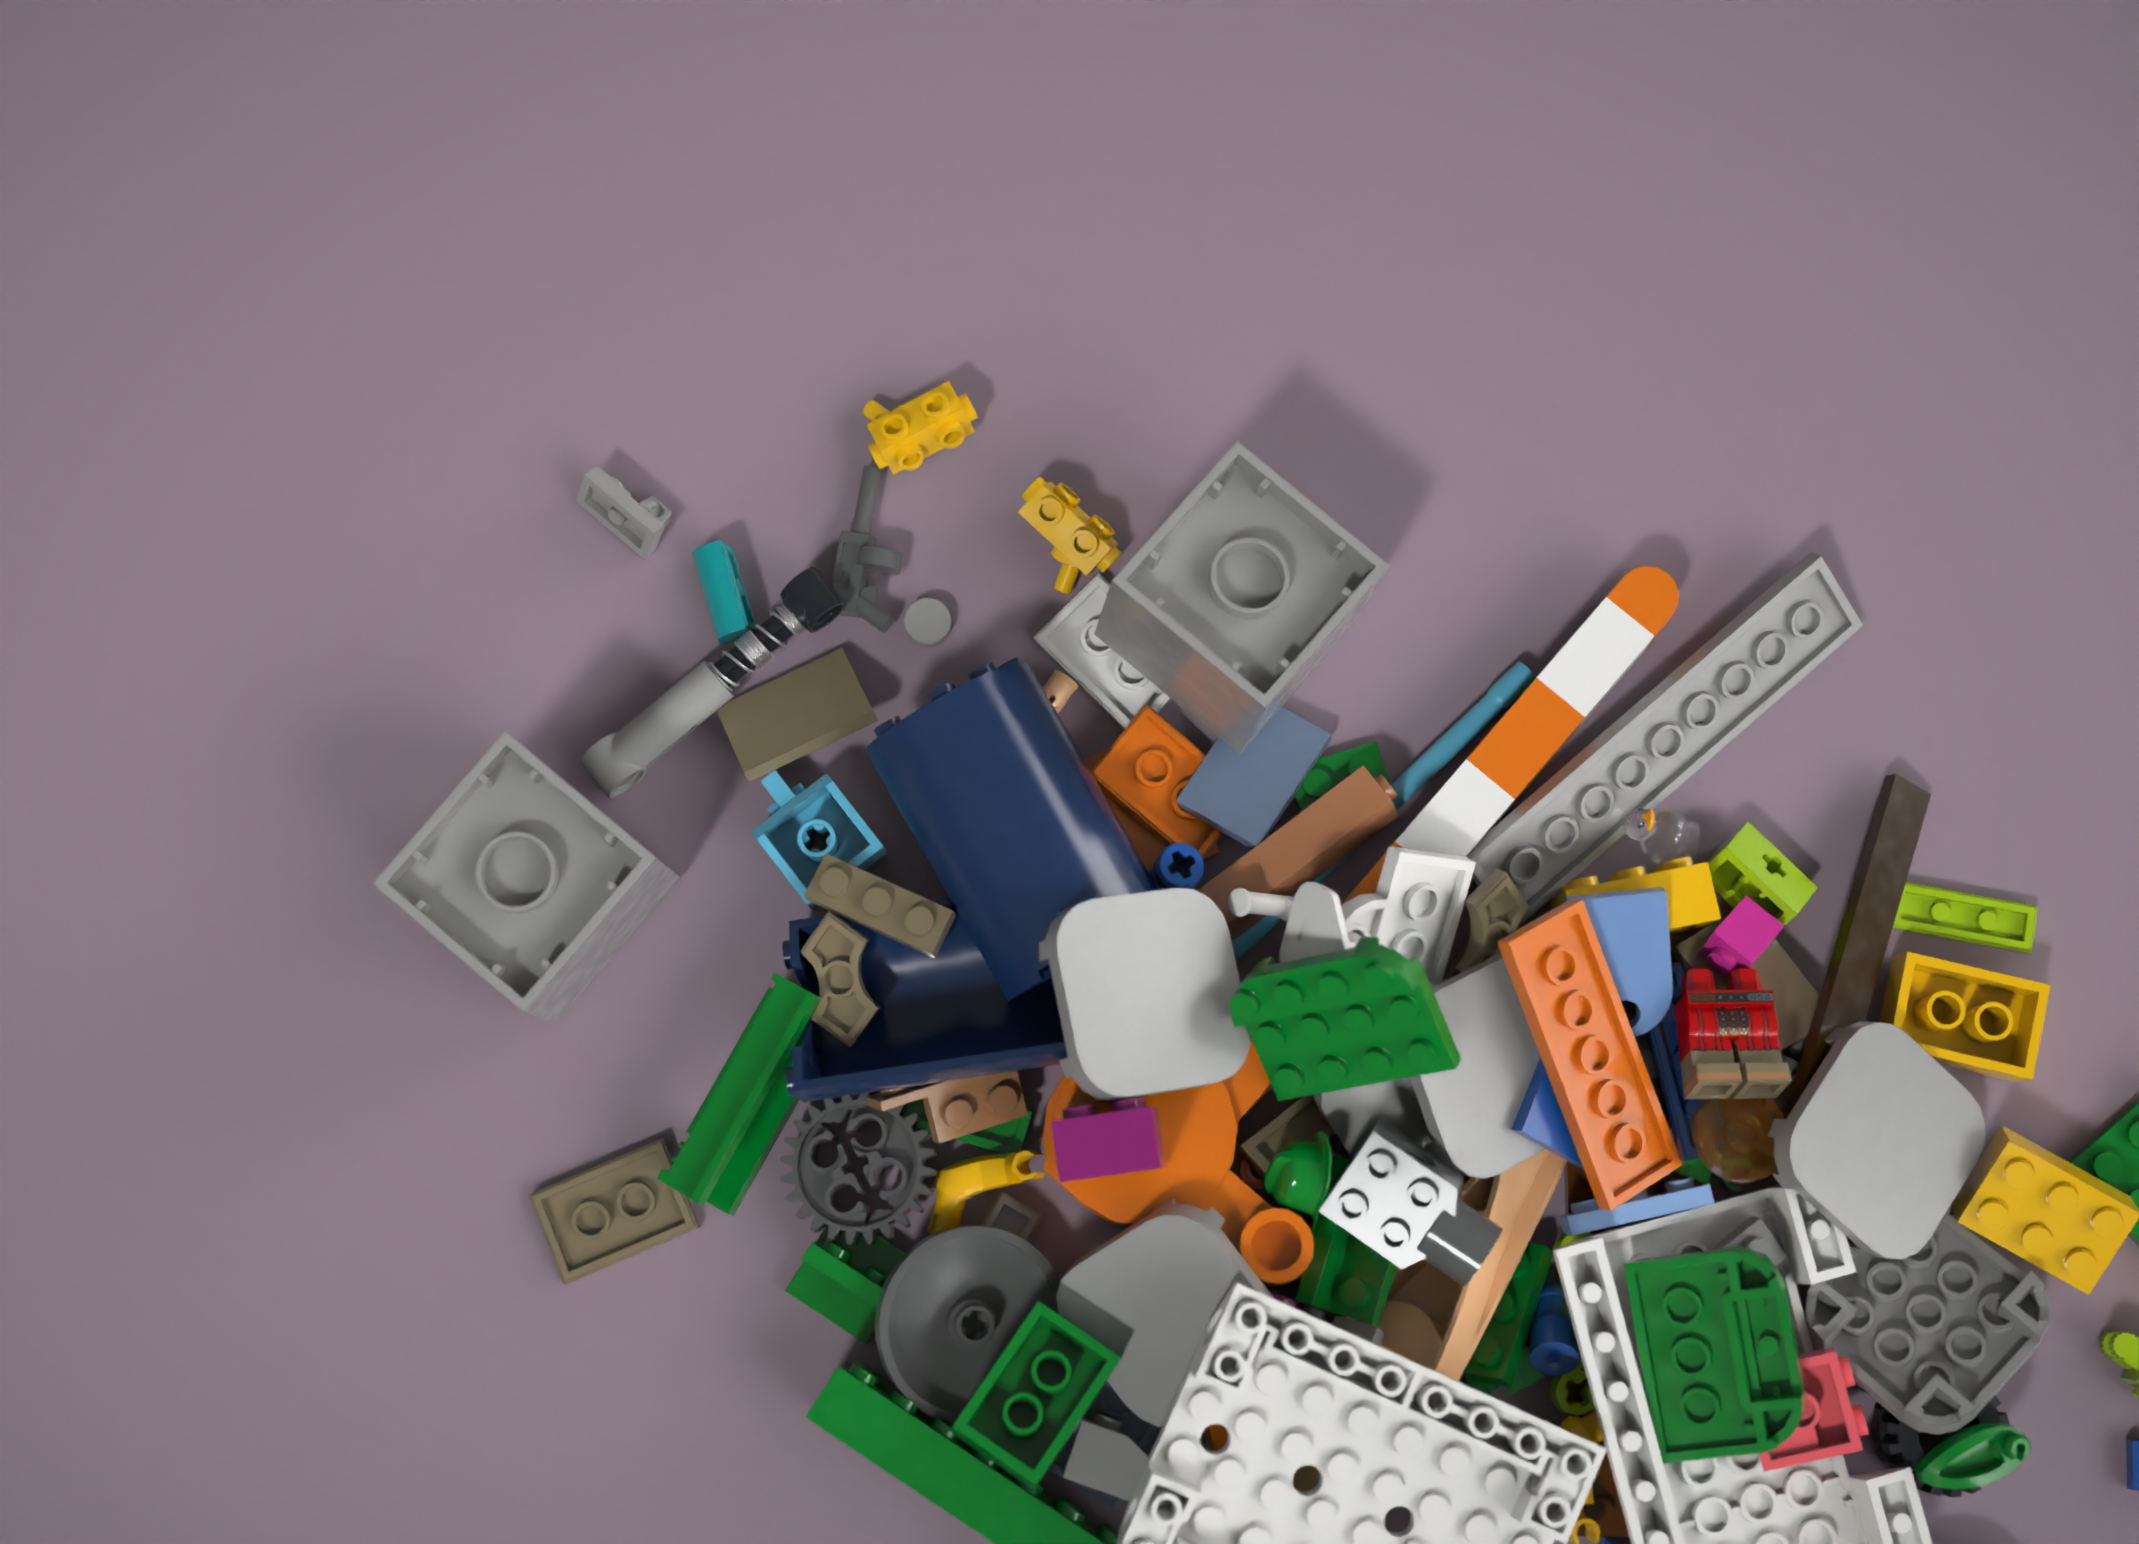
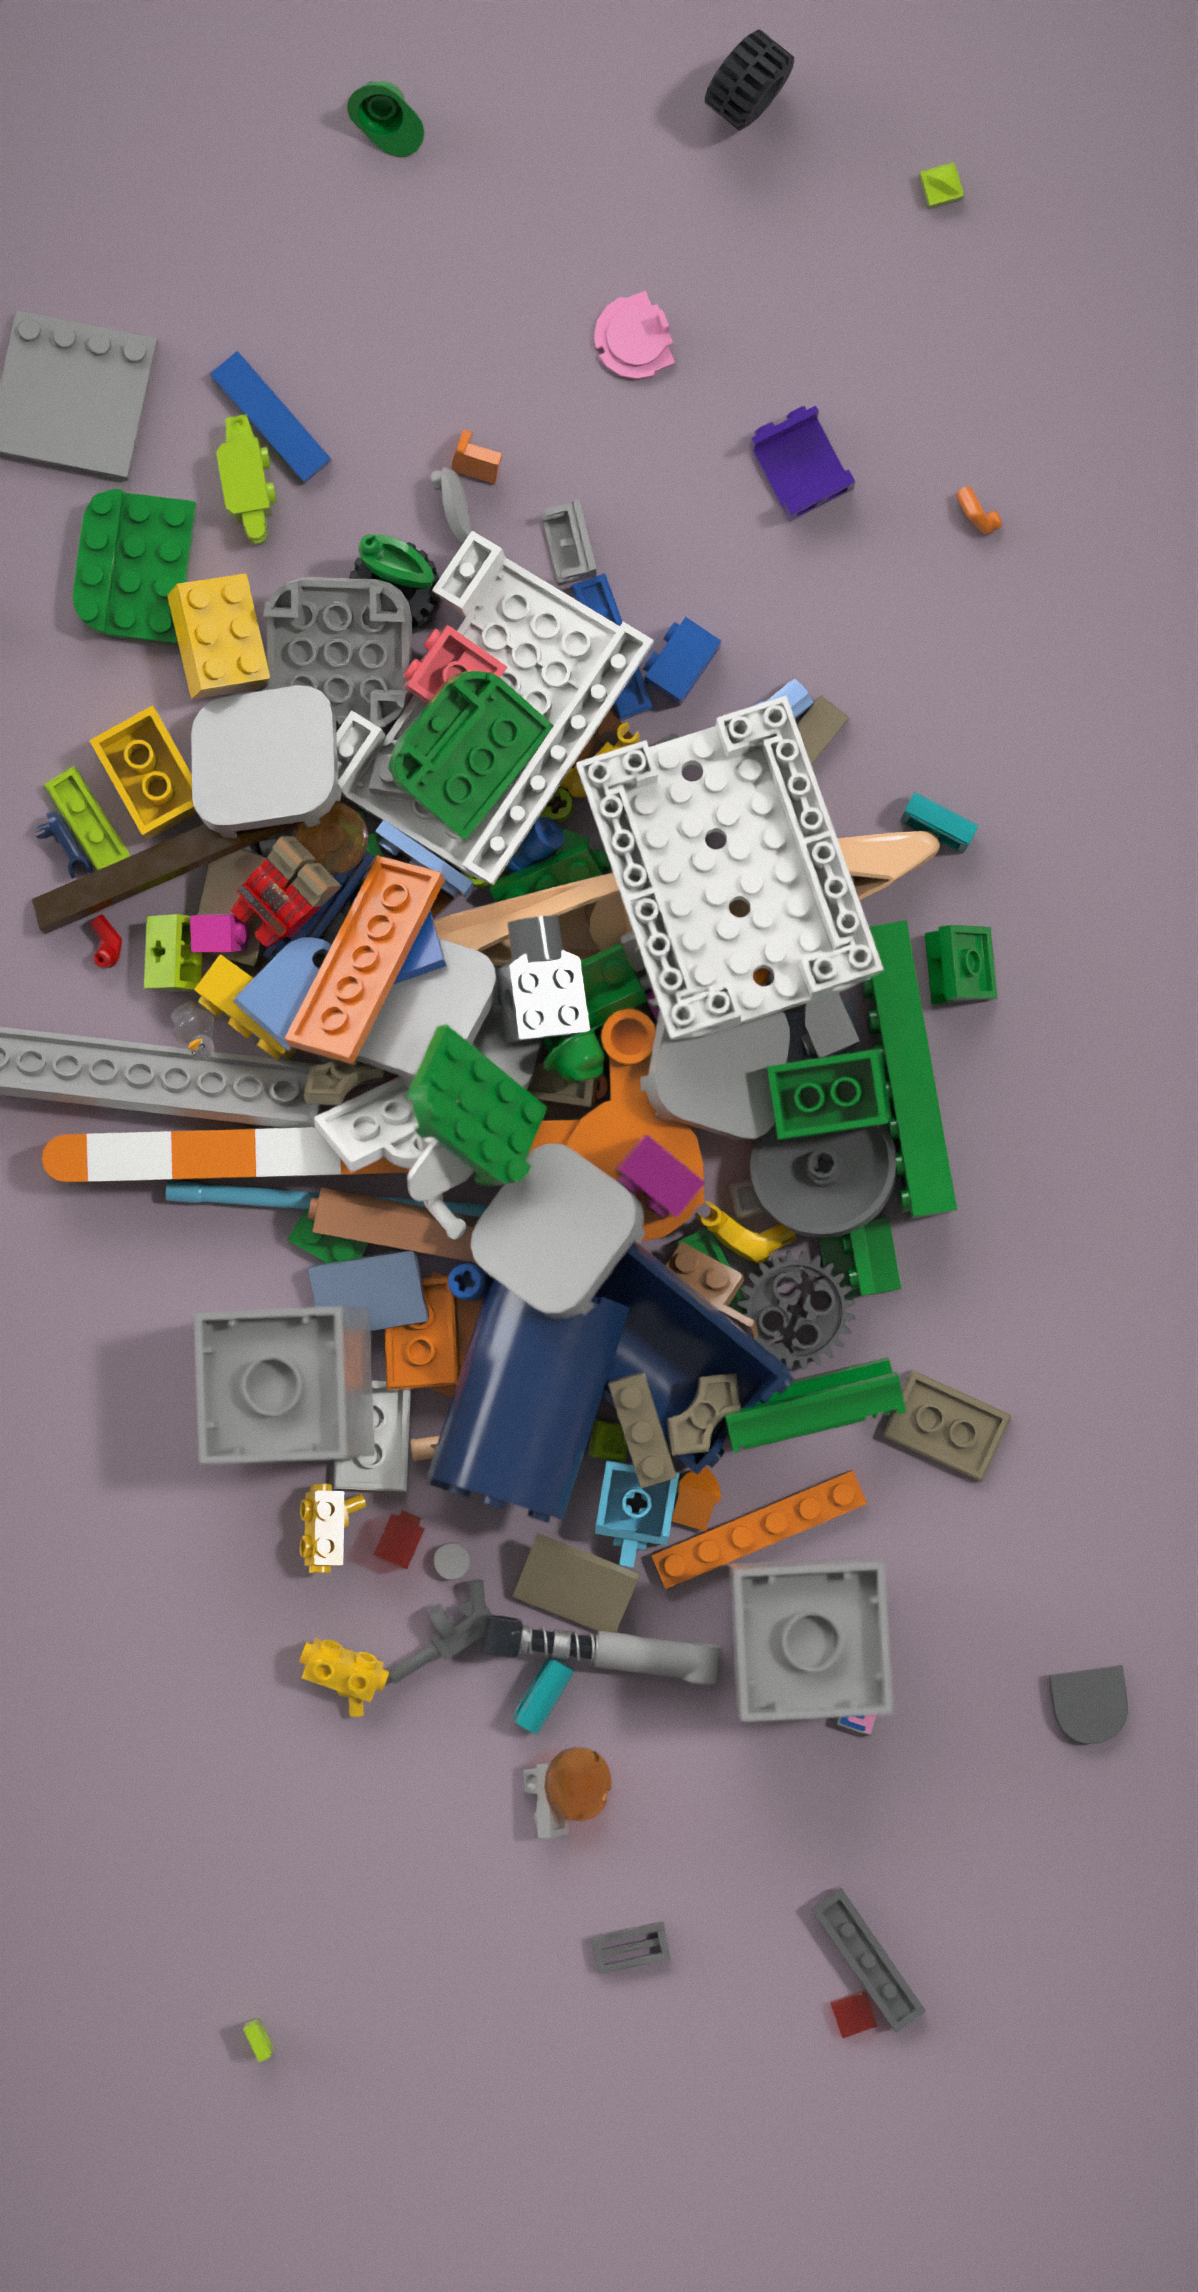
camera: 135 degrees left, 5 degrees up
(163, 611) = (853, 2013): none -> clear red tile
(196, 669) = (868, 1959): none -> dark grey plate
(225, 1102) = (1090, 1703): none -> dark grey tile
(435, 473) = (626, 1933): none -> flat silver tile
(611, 547) = (577, 1783): none -> clear orange tile
(659, 57) = (259, 2039): none -> lime tile
(686, 938) = (759, 1529): none -> orange plate
(768, 902) = (696, 1499): none -> orange tile
(903, 867) = (608, 1441): none -> lime tile
(992, 590) = (400, 1539): none -> clear red brick
(1818, 830) = (109, 945): none -> red arm
(1971, 879) = (58, 828): none -> dark blue piece

